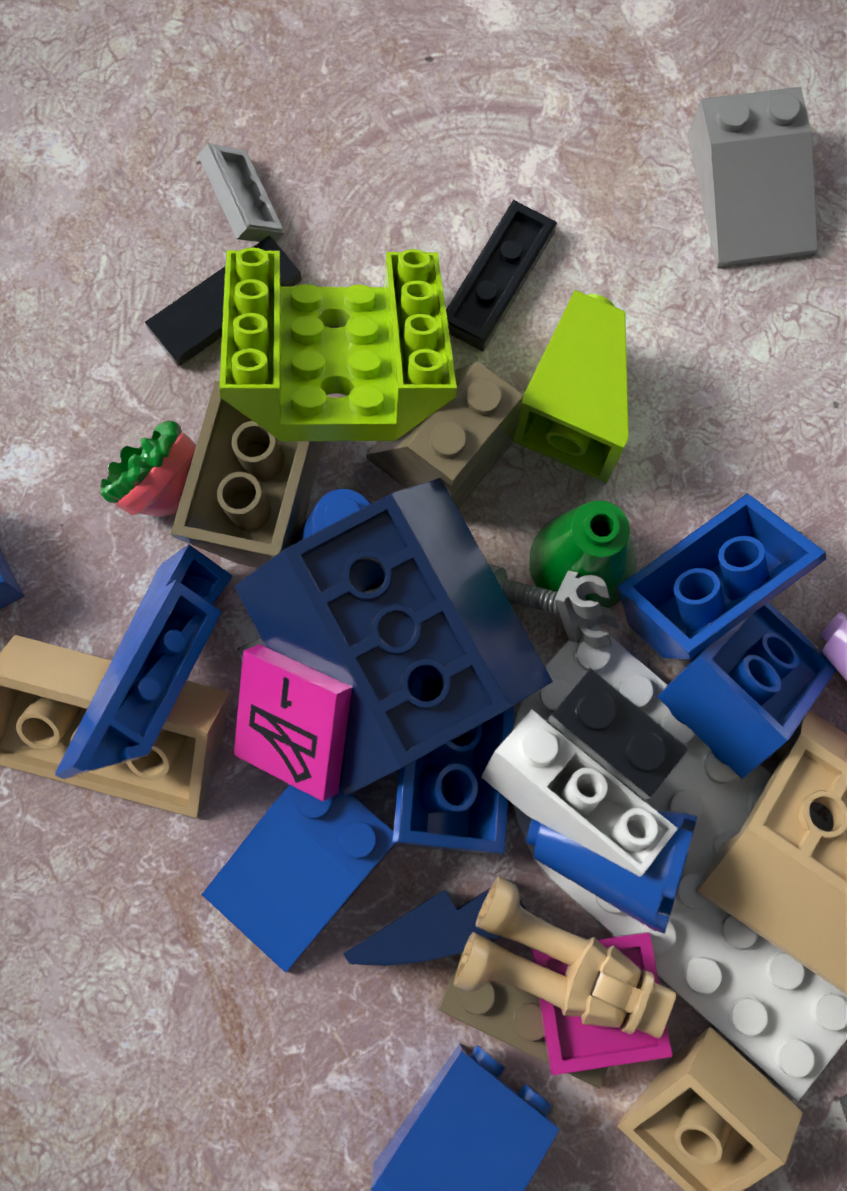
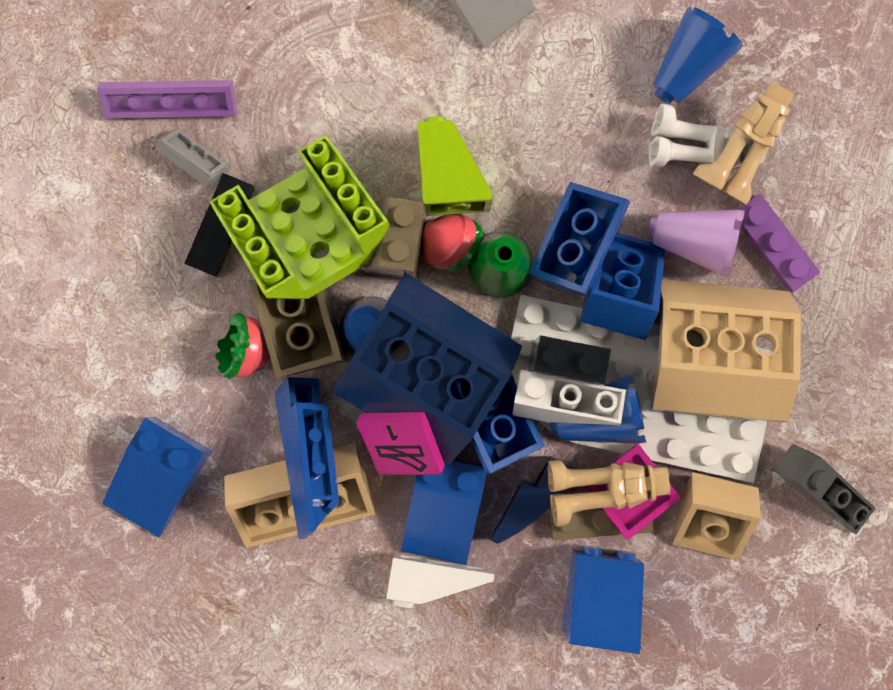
camera: 25 degrees left, 10 degrees up
(212, 959) = (426, 579): none -> white slope
(255, 107) = (167, 99): none -> medium lavender plate
(498, 274) = (364, 122): black tile -> none
(529, 485) = (451, 241): none -> coral hair
(569, 602) = (507, 296): light grey bar -> none

